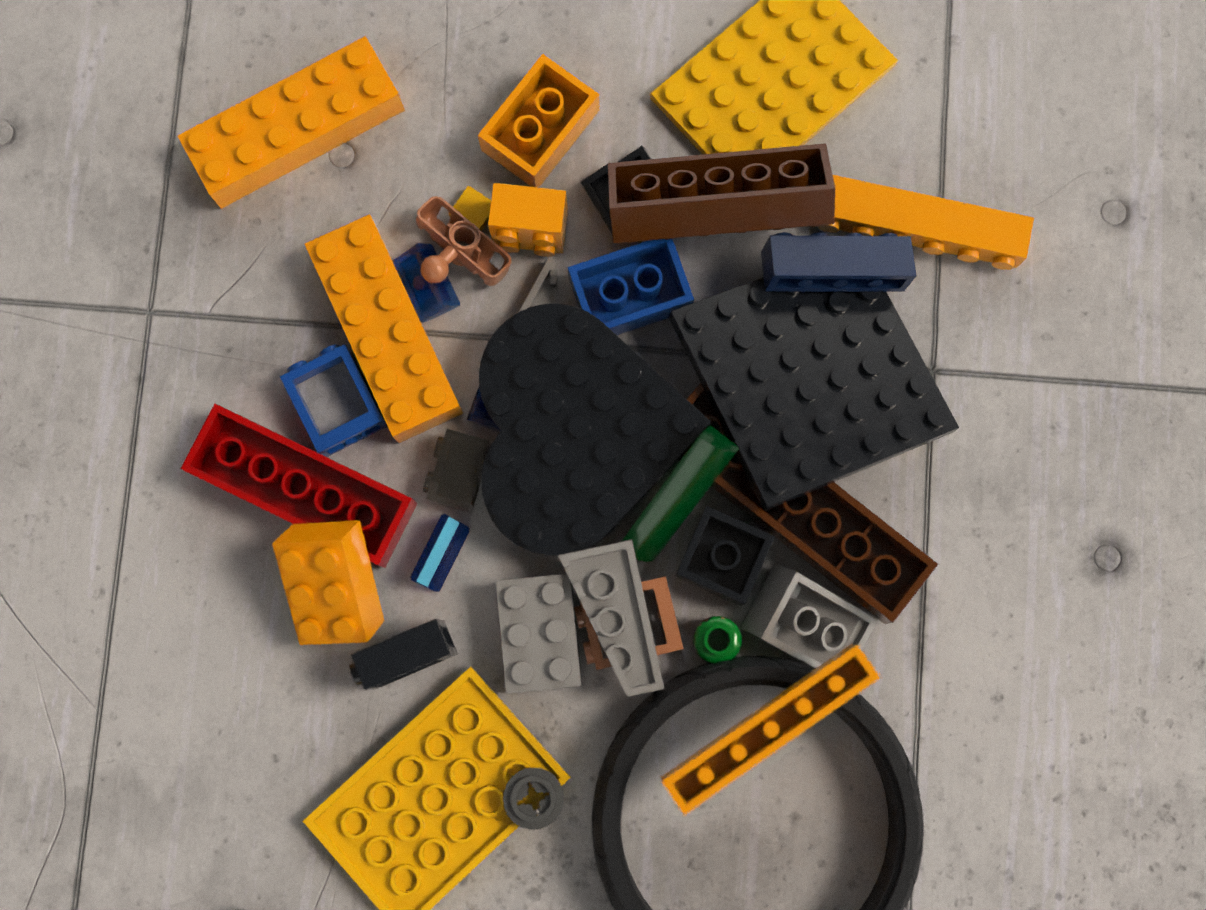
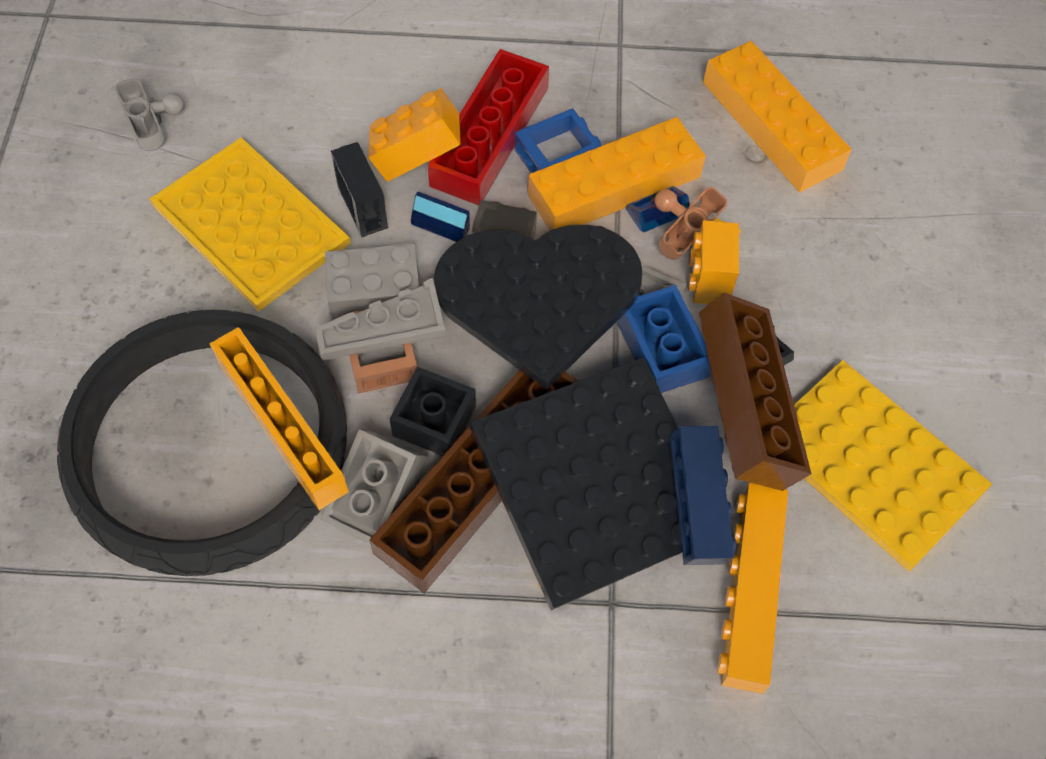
camera: 85 degrees right, 20 degrees down
(524, 814) = (229, 275): dark grey gear -> none
(539, 121) = (800, 272): light orange brick -> none
(680, 494) = (485, 366): dark green brick -> none
(717, 639) = (362, 408): green head -> none

